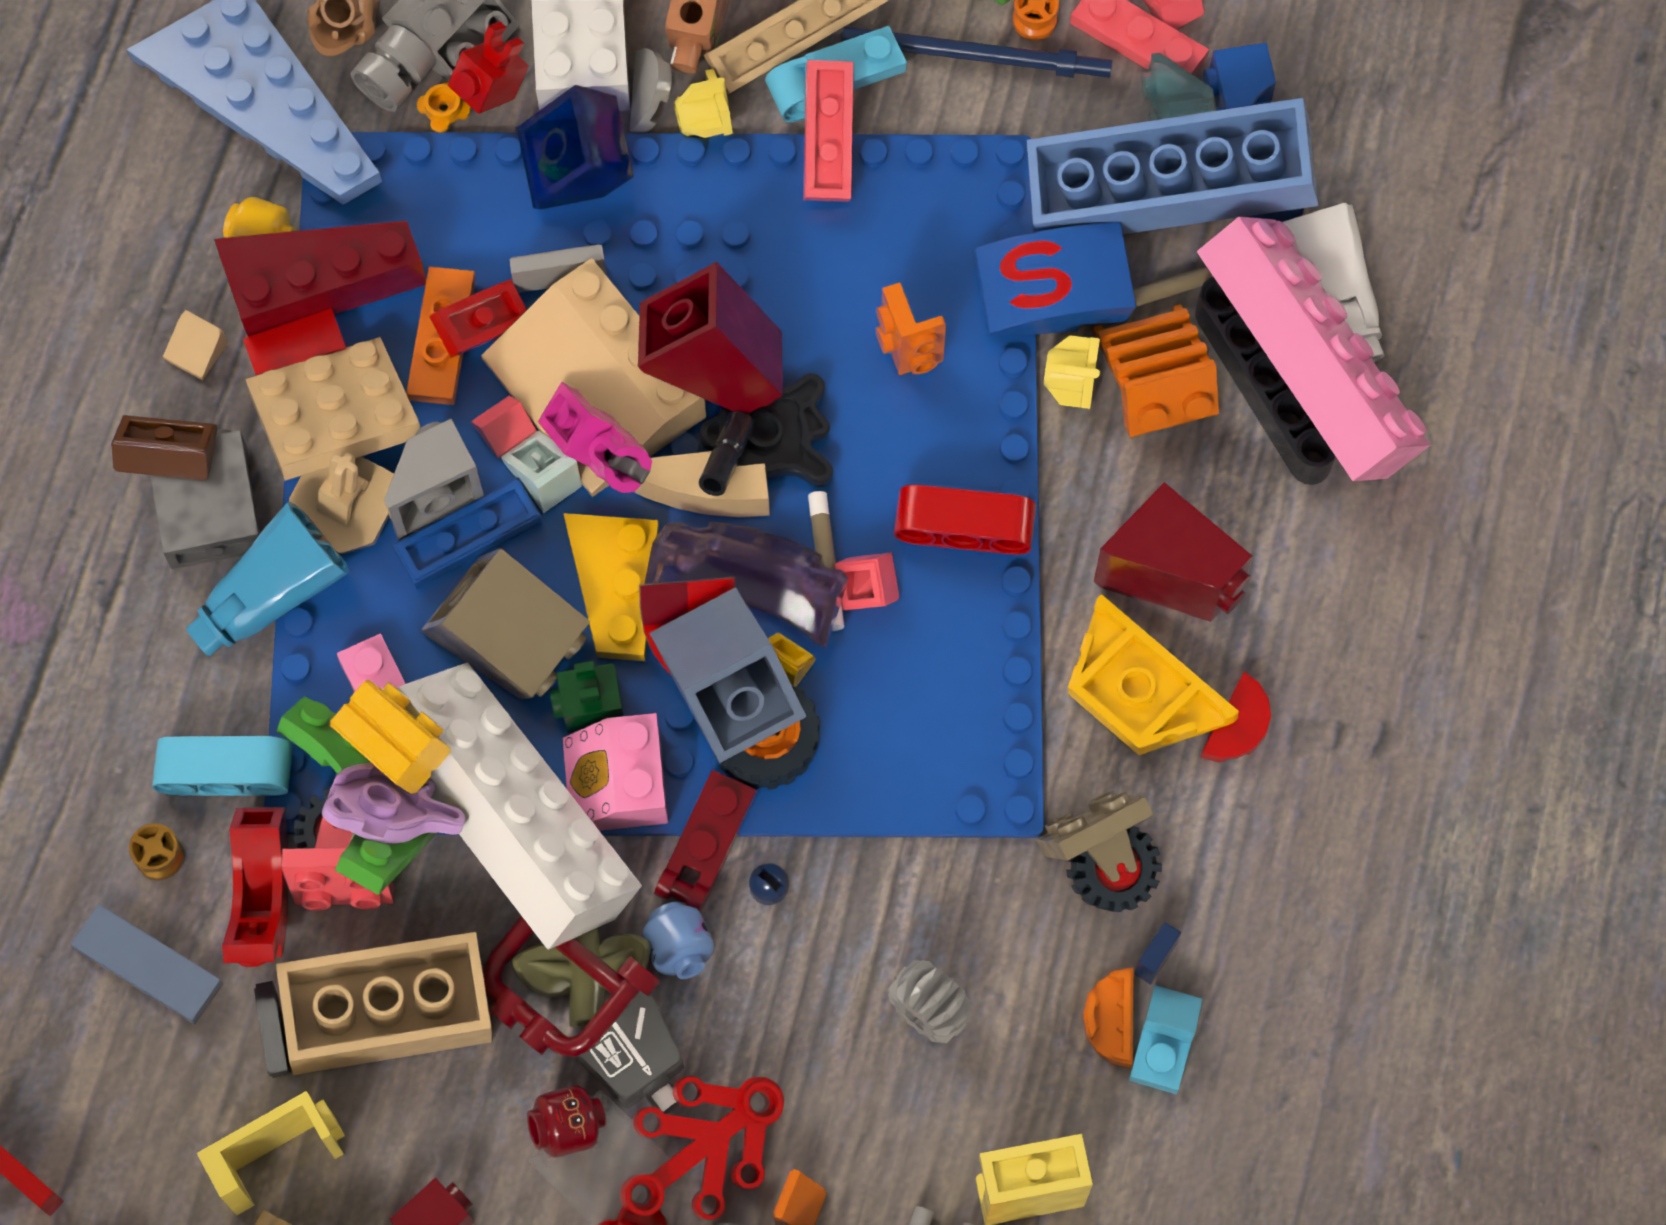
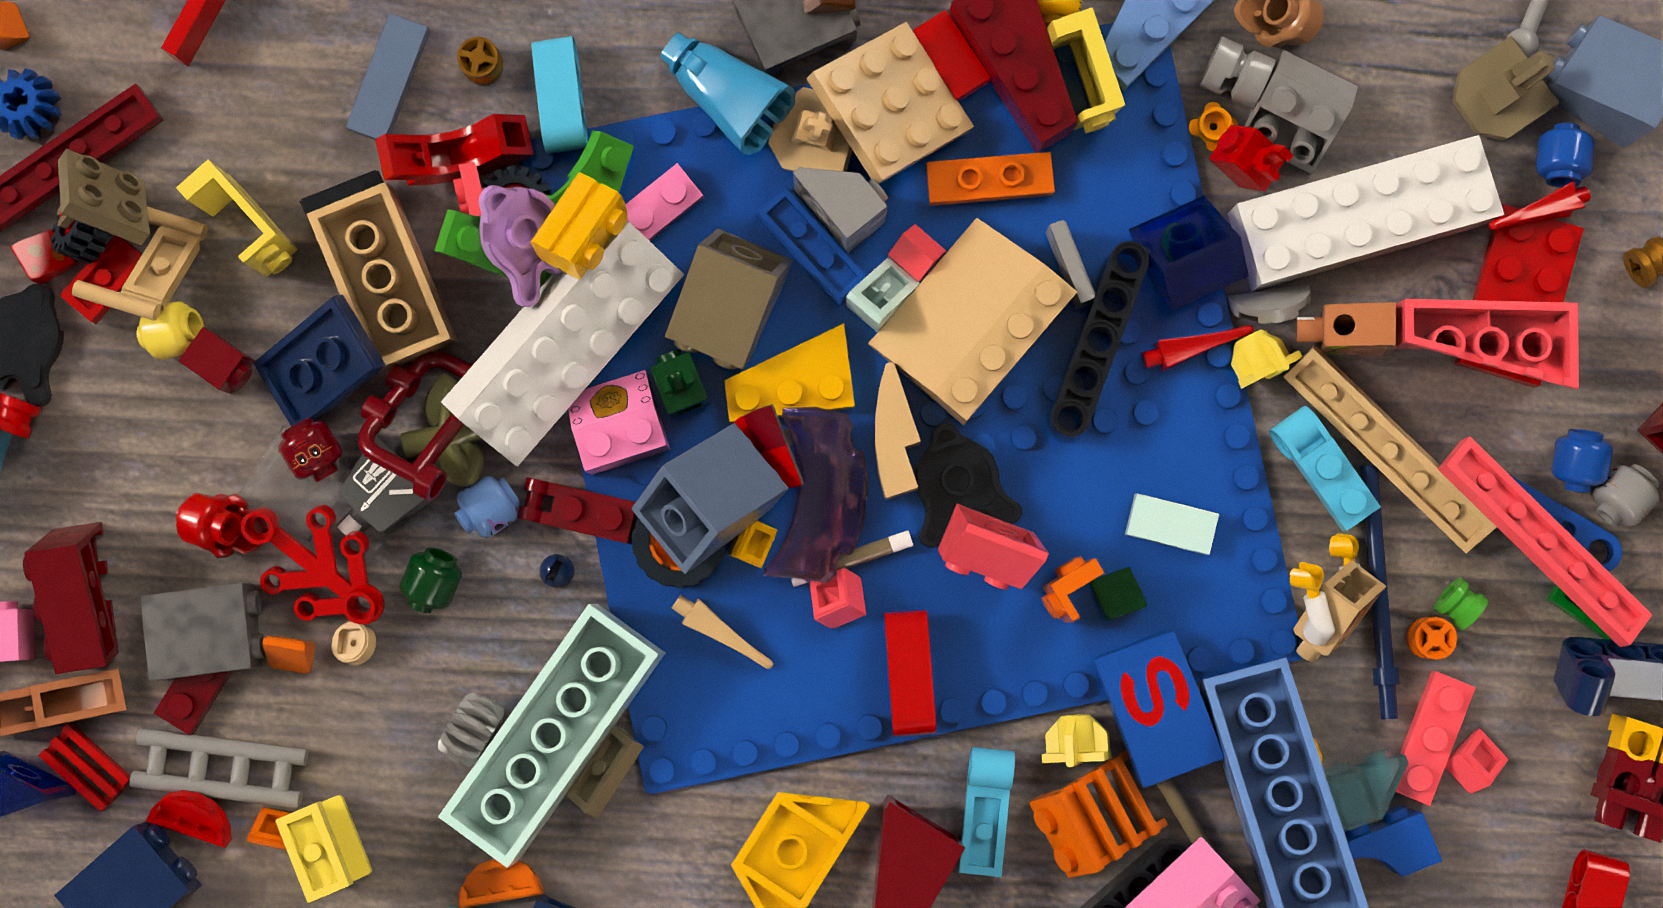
camera: 80 degrees right, 15 degrees up
(354, 196) = (1093, 65): none -> light yellow panel
(466, 1094) = (319, 362): none -> dark blue tile
(478, 318) = (1006, 207): red plate -> none
(595, 440) = (899, 335): dark pink plate -> none
(634, 239) = (1112, 326): none -> black beam
(677, 187) = (1176, 350): none -> red piece
(712, 342) = (1015, 416): dark red slope -> none
(725, 455) = (912, 451): black piece -> none
(749, 1020) = (430, 580): none -> dark green head
(802, 1126) = (353, 643): none -> tan tile
(828, 130) = (1258, 474): coral plate -> none
(849, 403) = (991, 548): none -> coral slope
(861, 231) = (1172, 524): none -> light aqua tile
(861, 725) = (705, 621): none -> tan piece
(928, 294) = (1118, 594): none -> dark green slope
(954, 908) = (551, 735): none -> light aqua brick
(984, 82) = (1339, 603): none -> torso
(1006, 869) = (604, 772): none -> dark tan plate
(1108, 854) = (634, 852): plate -> none
(1121, 475) = (986, 811): none -> medium azure plate

